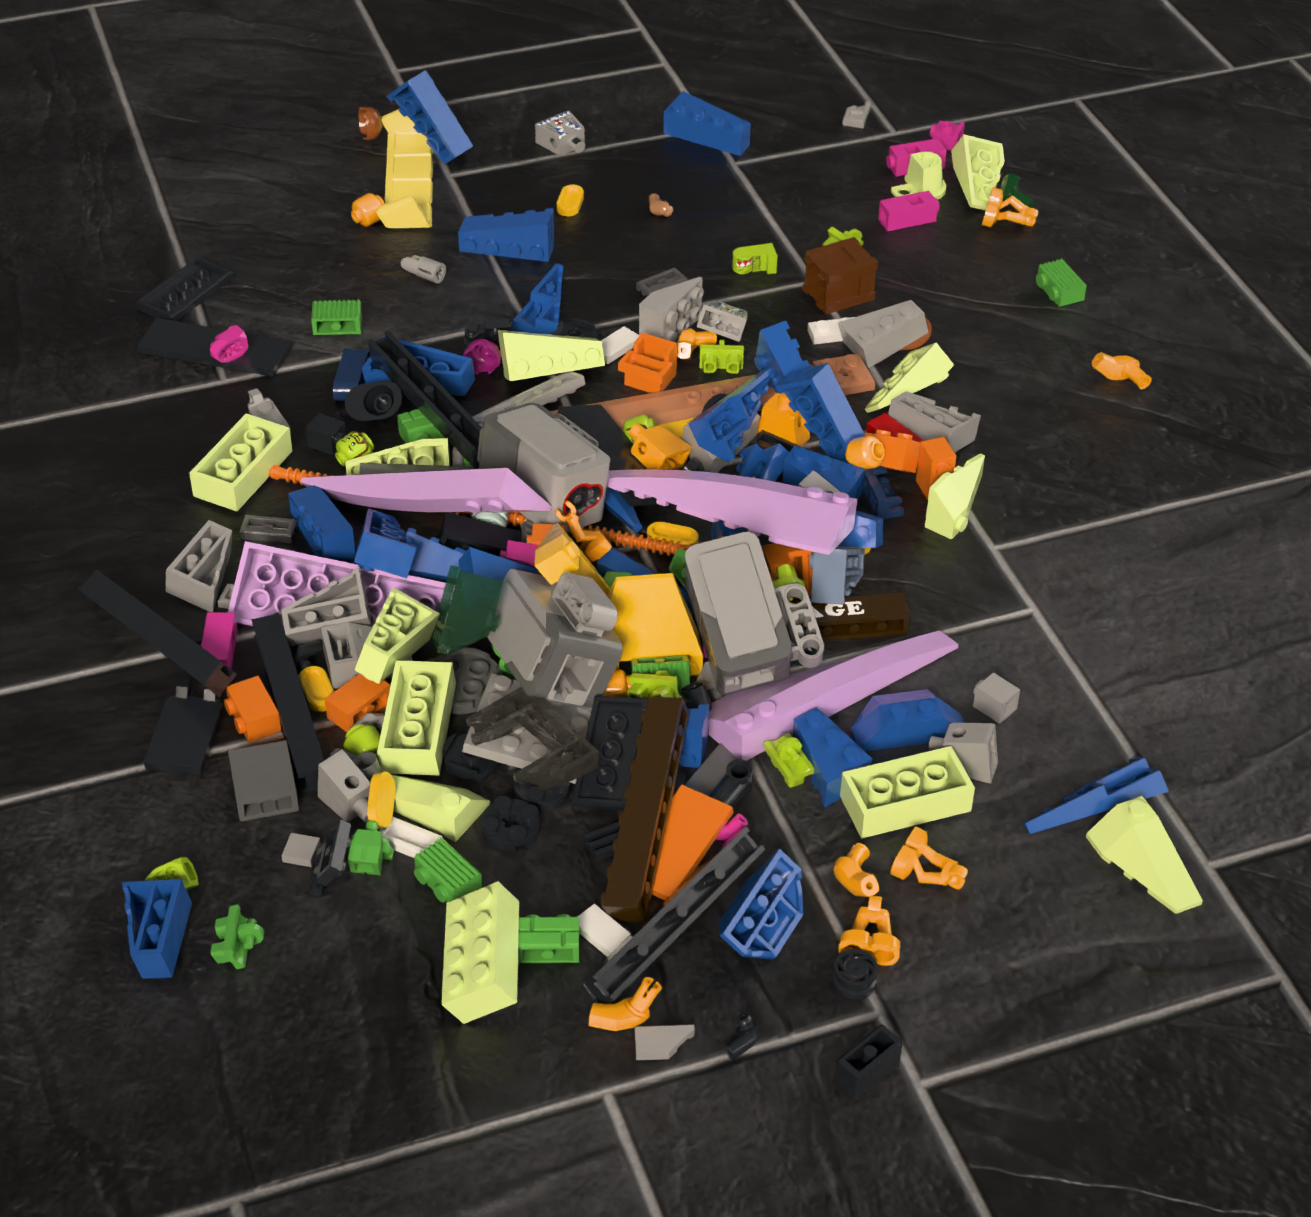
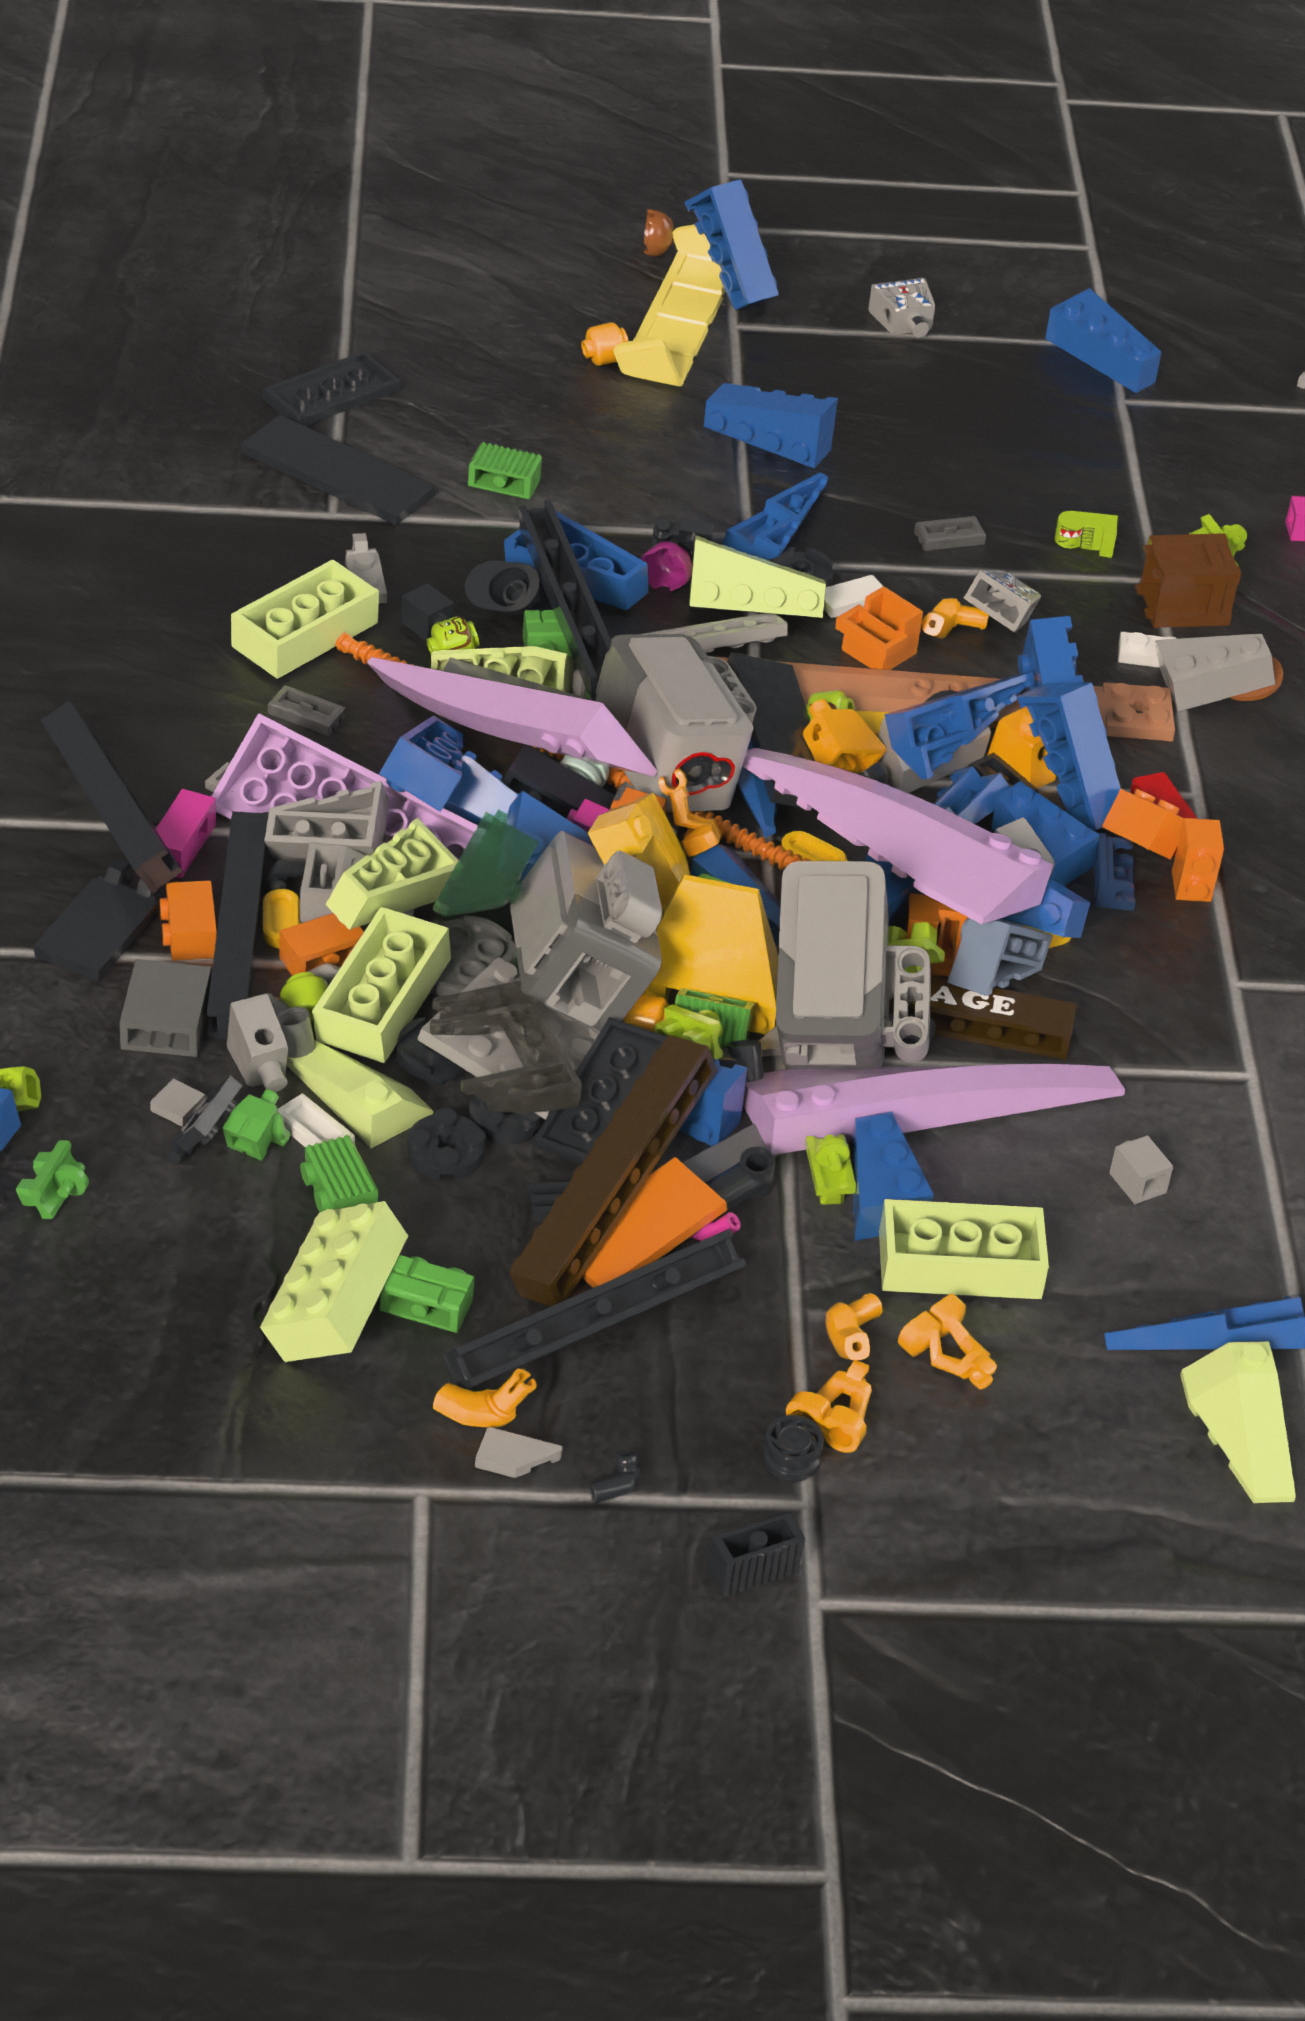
camera: 15 degrees right, 0 degrees up
(201, 566) = (201, 732): light grey wedge -> none
(229, 345) = (352, 470): dark pink rock -> none
(322, 524) = (370, 718): blue wedge -> none
(349, 372) = (487, 542): dark blue beam -> none
(381, 799) = (295, 1069): yellow tile -> none
(424, 268) = (646, 436): light grey hinge -> none
(570, 200) = (878, 396): yellow tile -> none
(601, 930) = (499, 1300): white tile -> none
(659, 207) = (992, 433): medium nougat arm -> none
(671, 309) = (938, 568): light grey slope -> none
(721, 357) = (982, 646): lime hips -> none
(765, 909) = (713, 1338): blue wedge -> none
(865, 452) = (1108, 814): light orange head -> none
(903, 720) = (1010, 1165): blue wedge -> none
(912, 374) = (1238, 731): yellowish green wedge -> none
(932, 422) = (1216, 795): light grey wedge -> none
(953, 497) = (1206, 902): yellowish green wedge -> none
(974, 747) = (1074, 1222): light grey torso -> none

